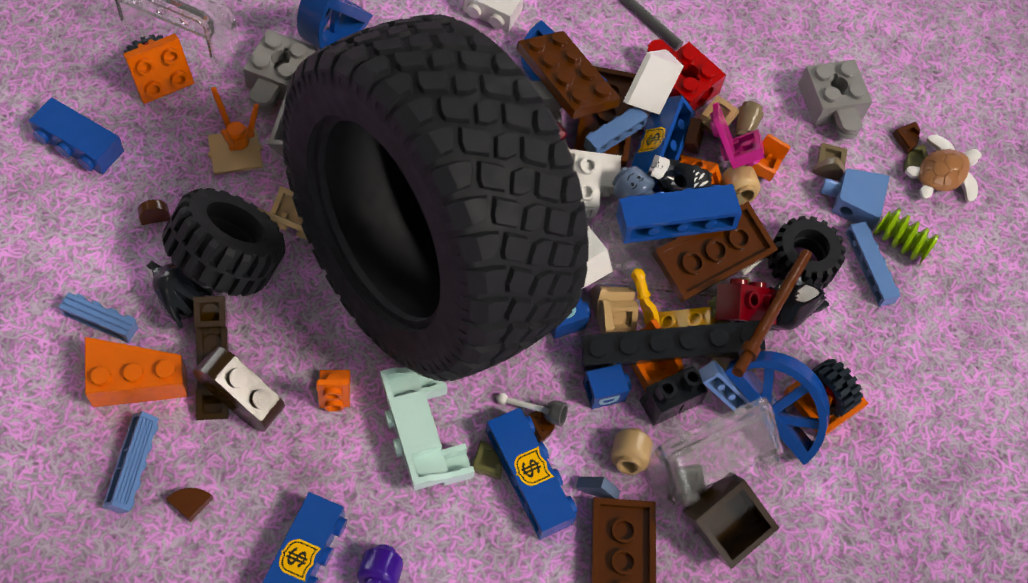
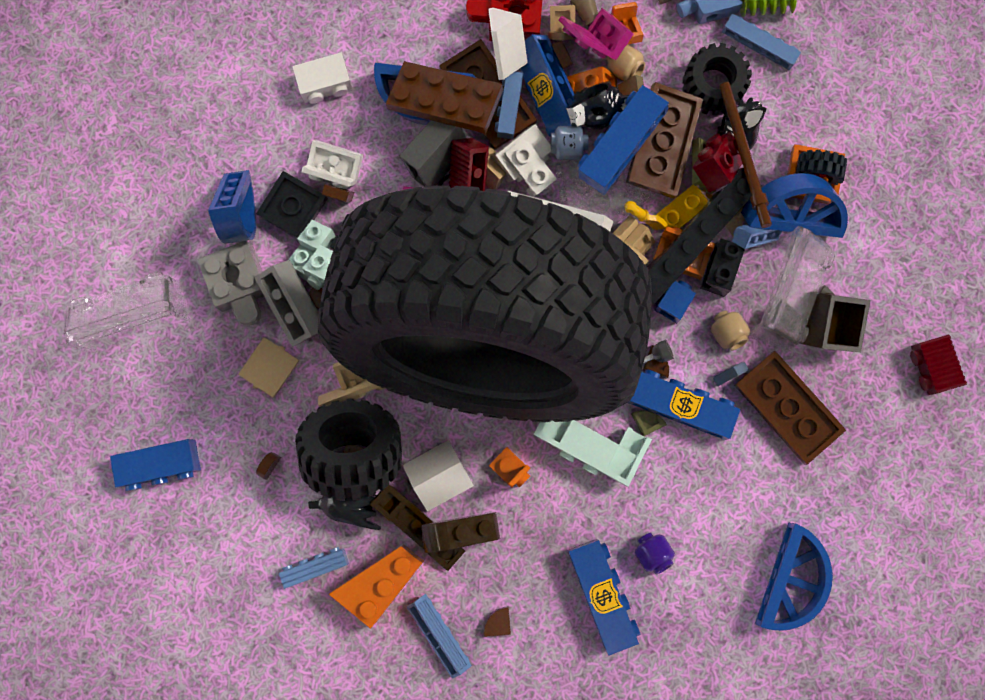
camera: 30 degrees left, 20 degrees up
(157, 66) = (148, 360): orange plate -> none
(236, 133) = (259, 356): orange plant -> none
(271, 342) = (437, 475): none -> white slope

